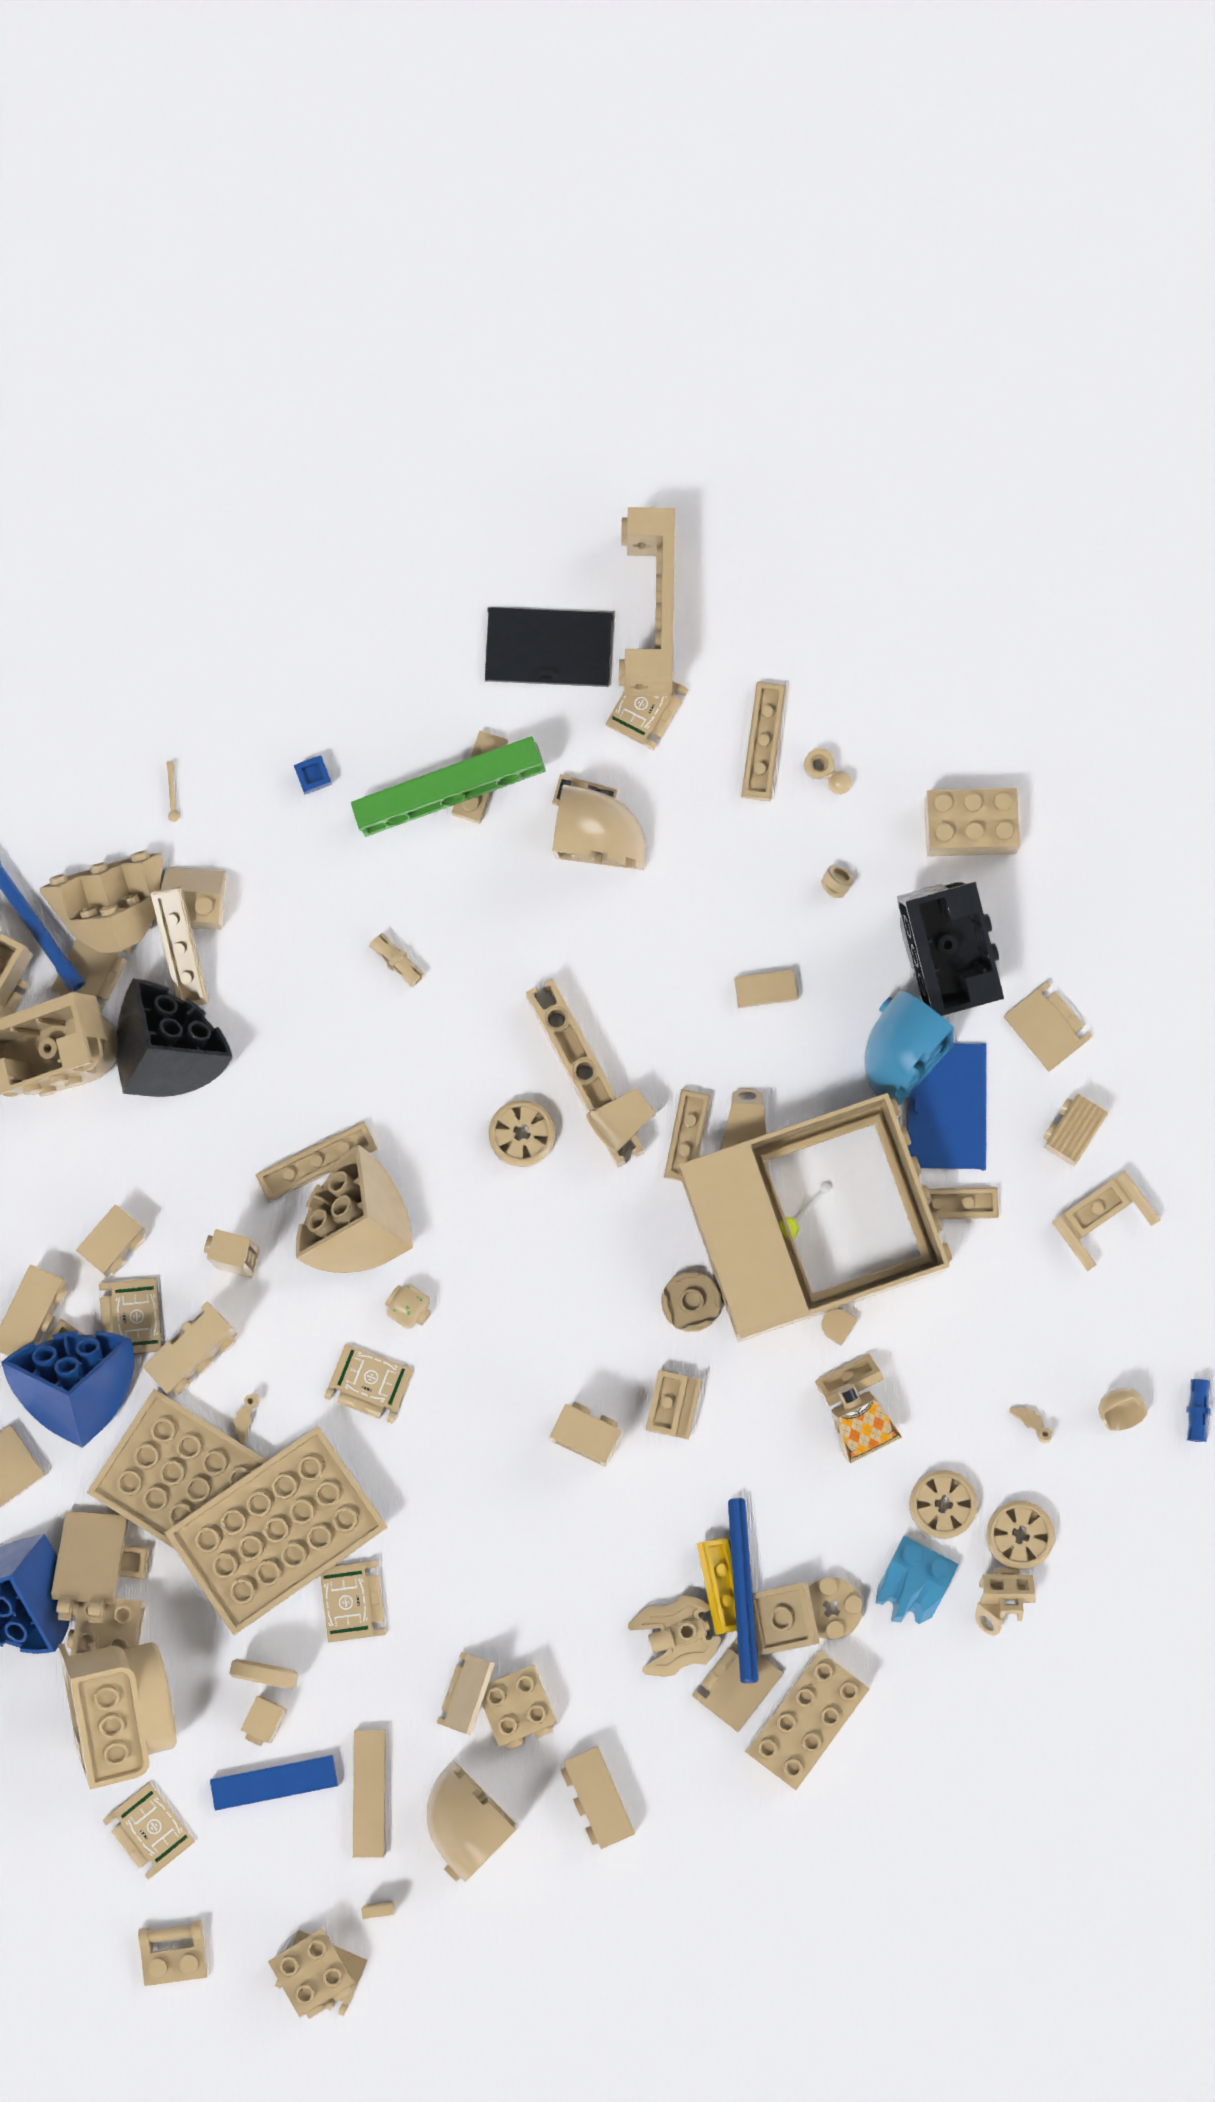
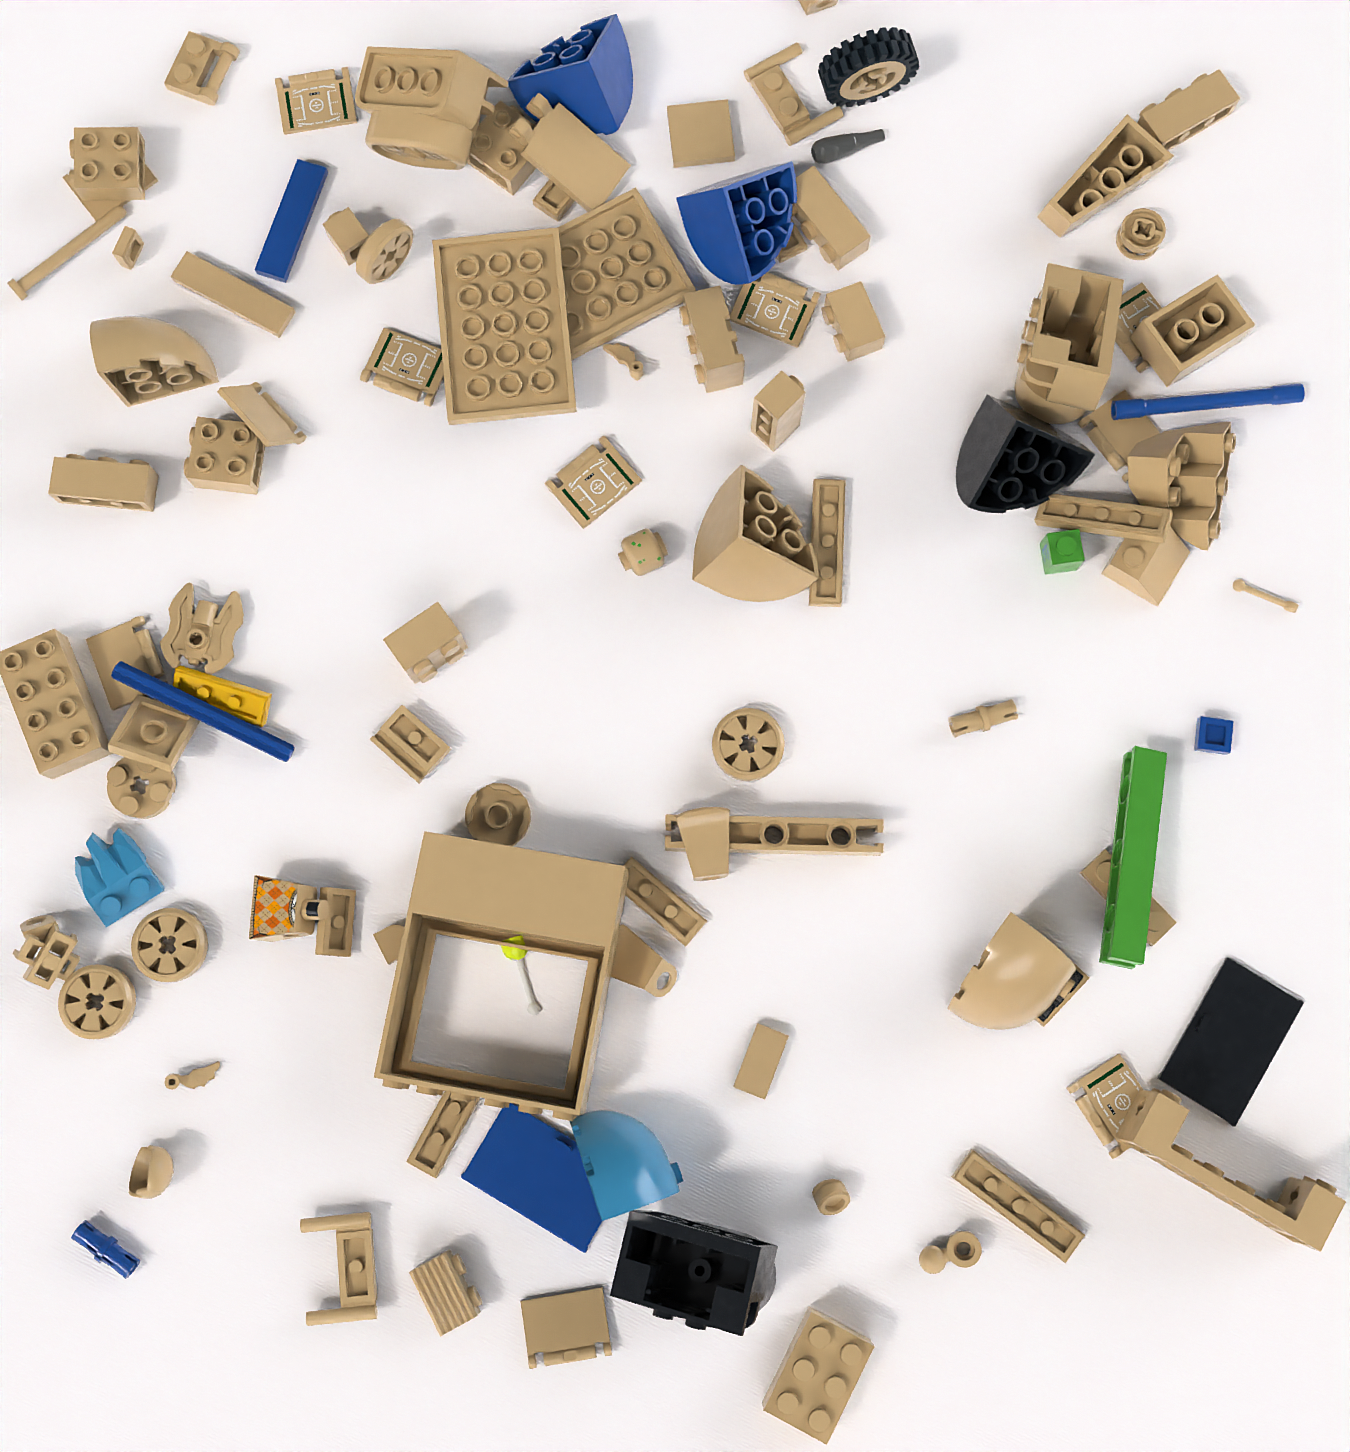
camera: 120 degrees right, 0 degrees up
(224, 967) = (1062, 551): none -> bright green brick
(410, 1967) = (66, 252): none -> tan bar

